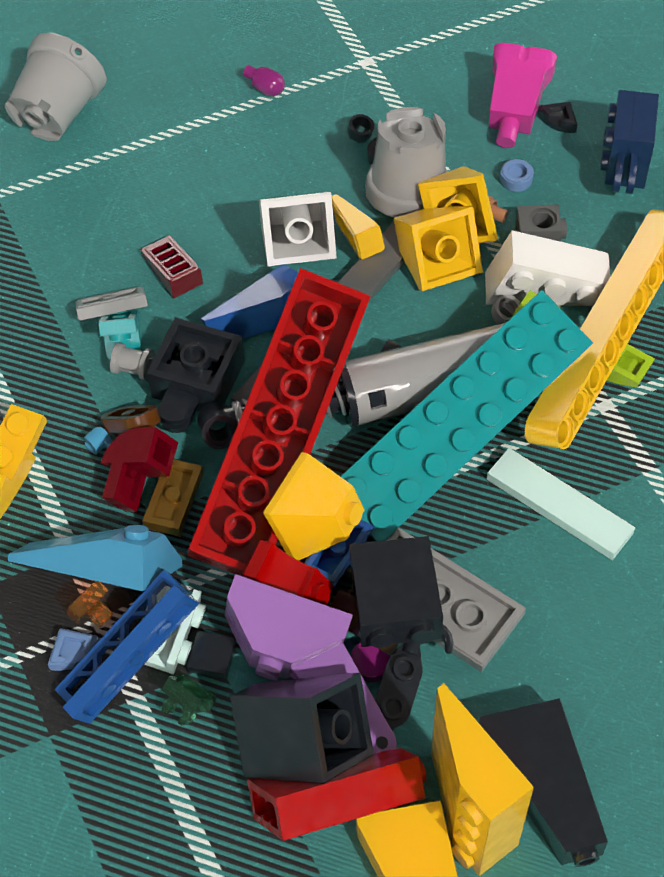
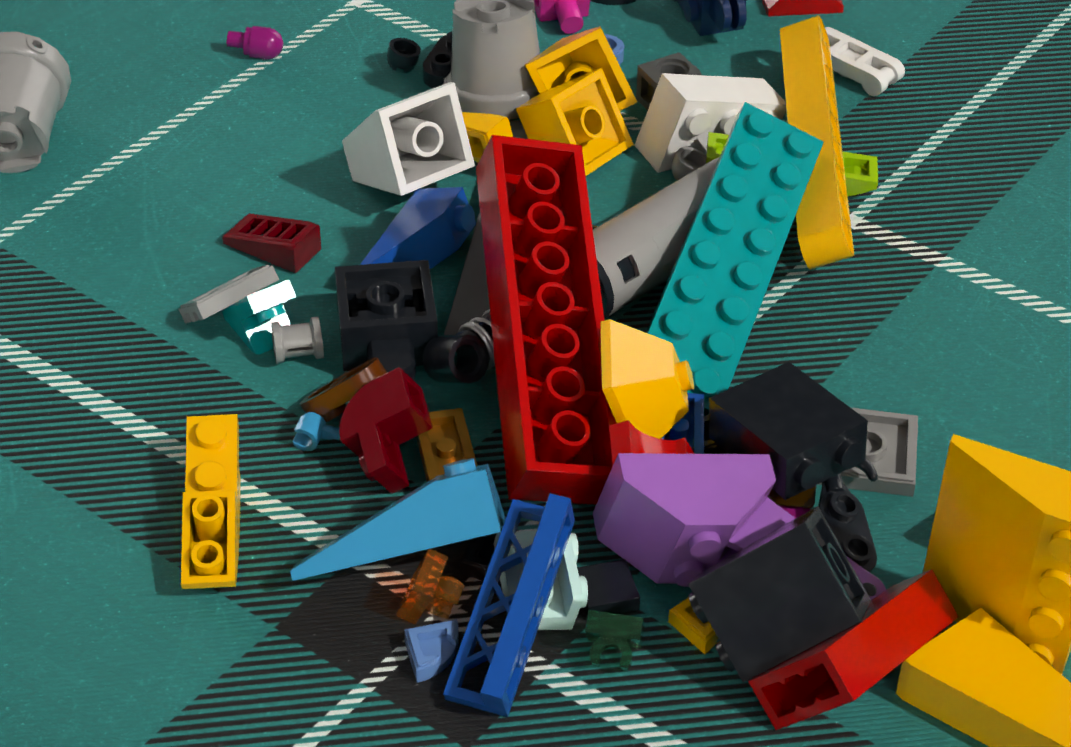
camera: 30 degrees left, 15 degrees down
(561, 503) = (877, 315): light aqua tile -> none

